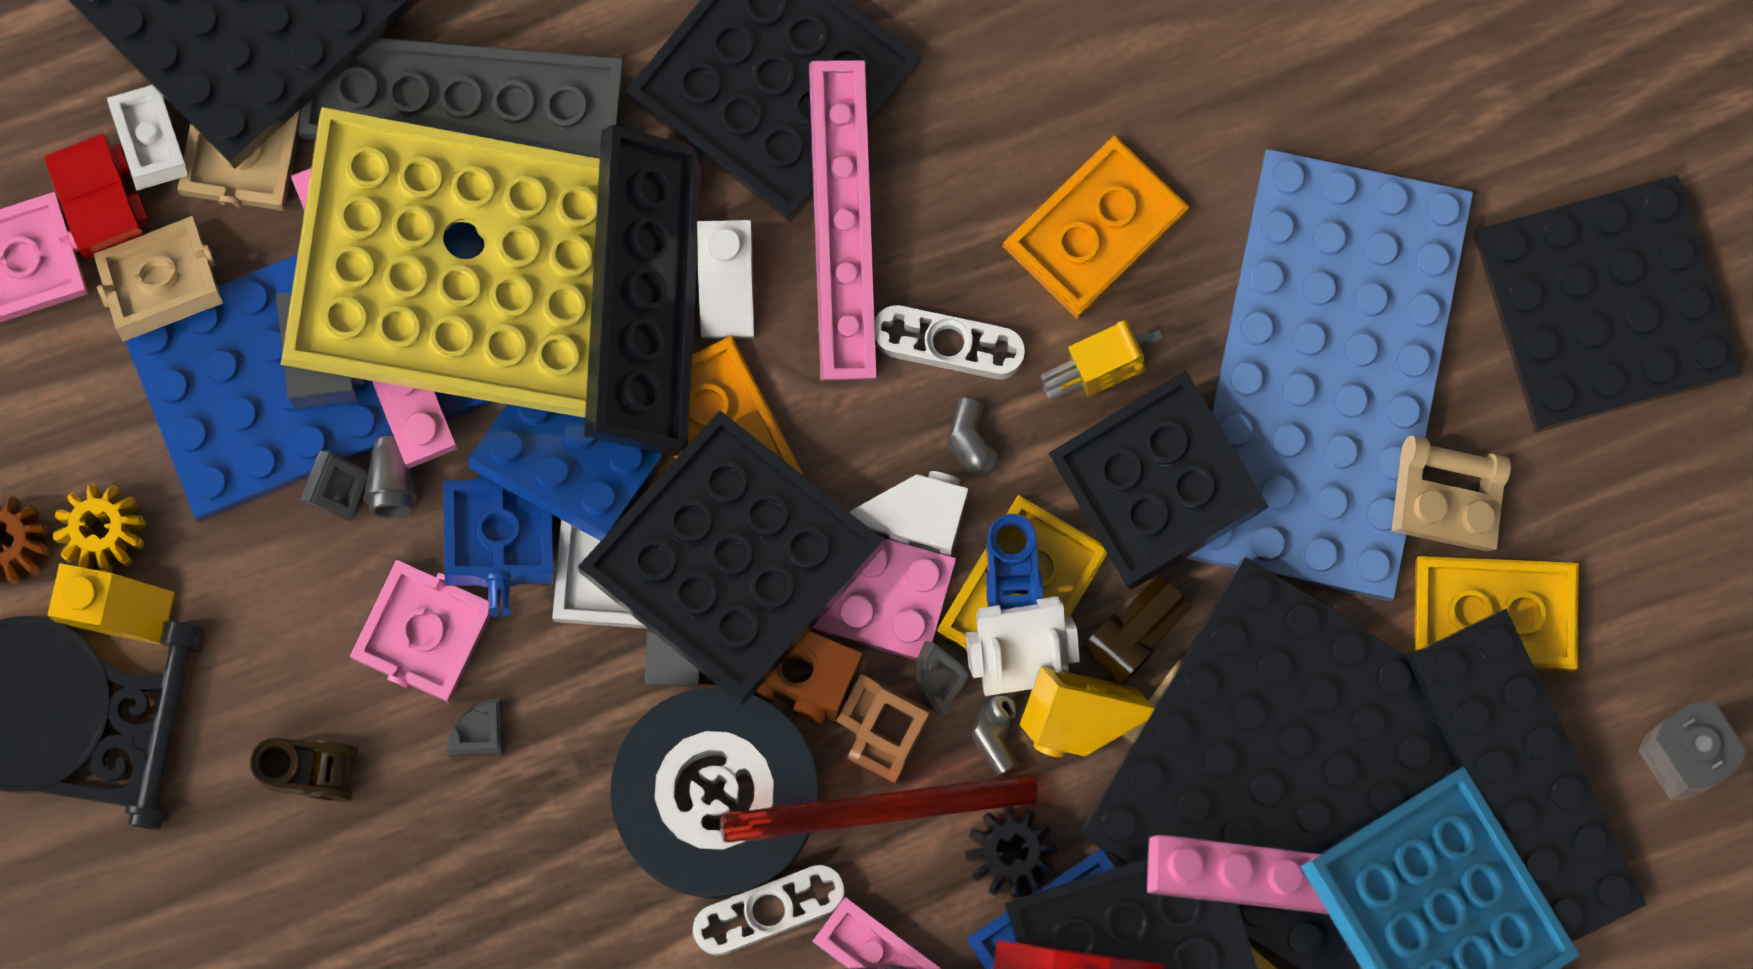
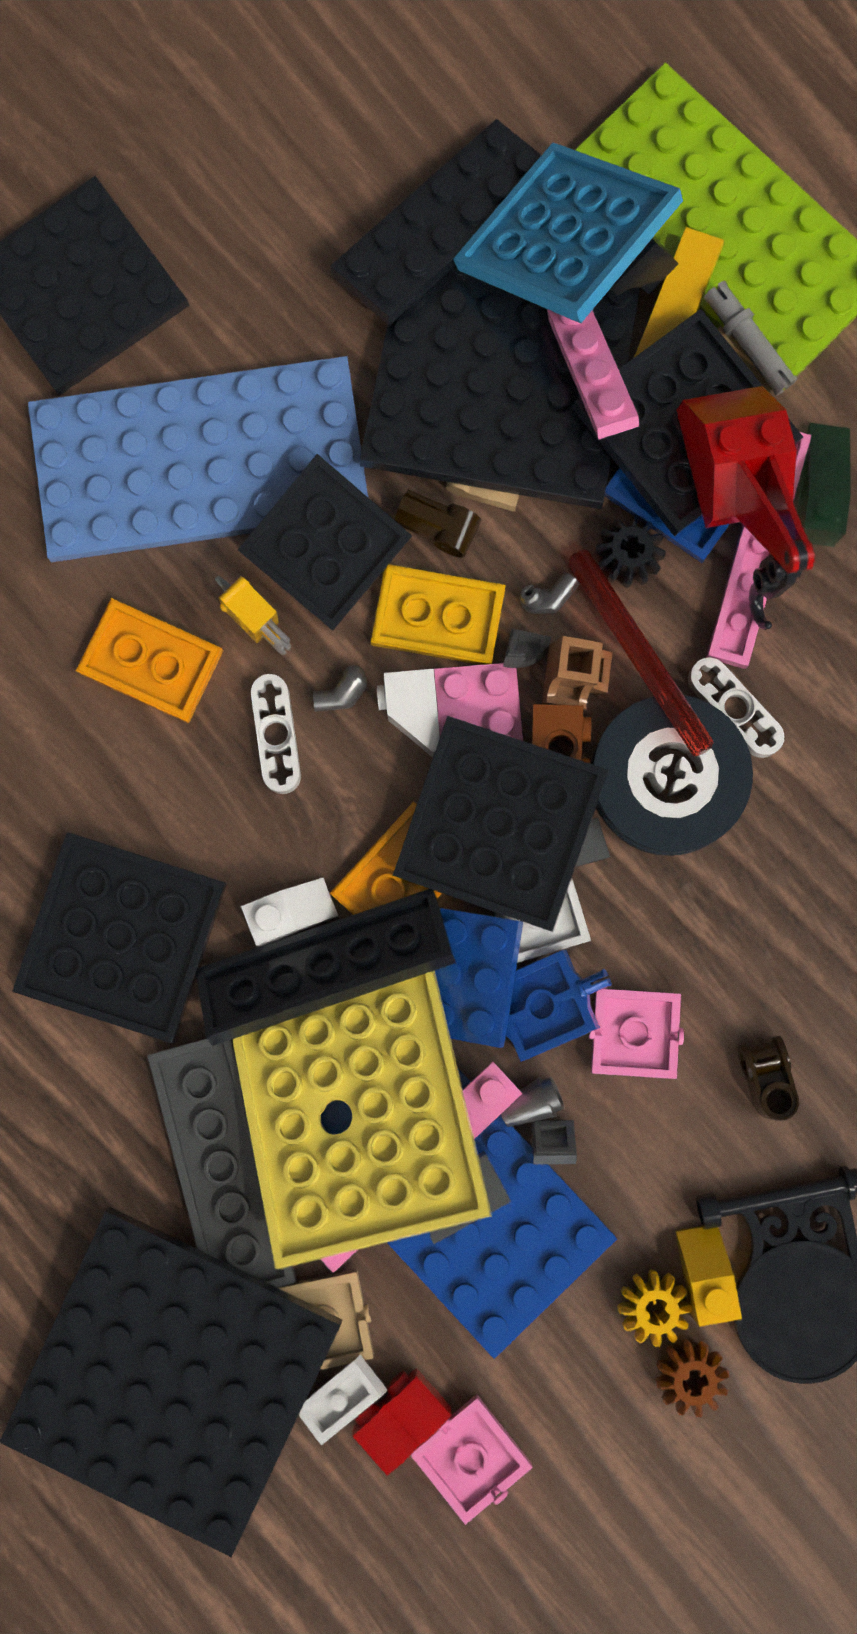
camera: 110 degrees left, 5 degrees up
(157, 278) = (449, 1344): tan plate -> none
(478, 731) = (690, 964): dark grey tile -> none
(842, 220) = (212, 841): bright pink plate -> none
(1014, 572) = (437, 616): blue piece -> none
(1018, 642) = (484, 593): white piece -> none
(1080, 712) = (514, 537): yellow slope -> none
(1446, 511) = (271, 339): tan plate -> none
(1535, 593) = (324, 307): yellow tile -> none
(1692, 750) = (381, 112): dark grey piece -> none

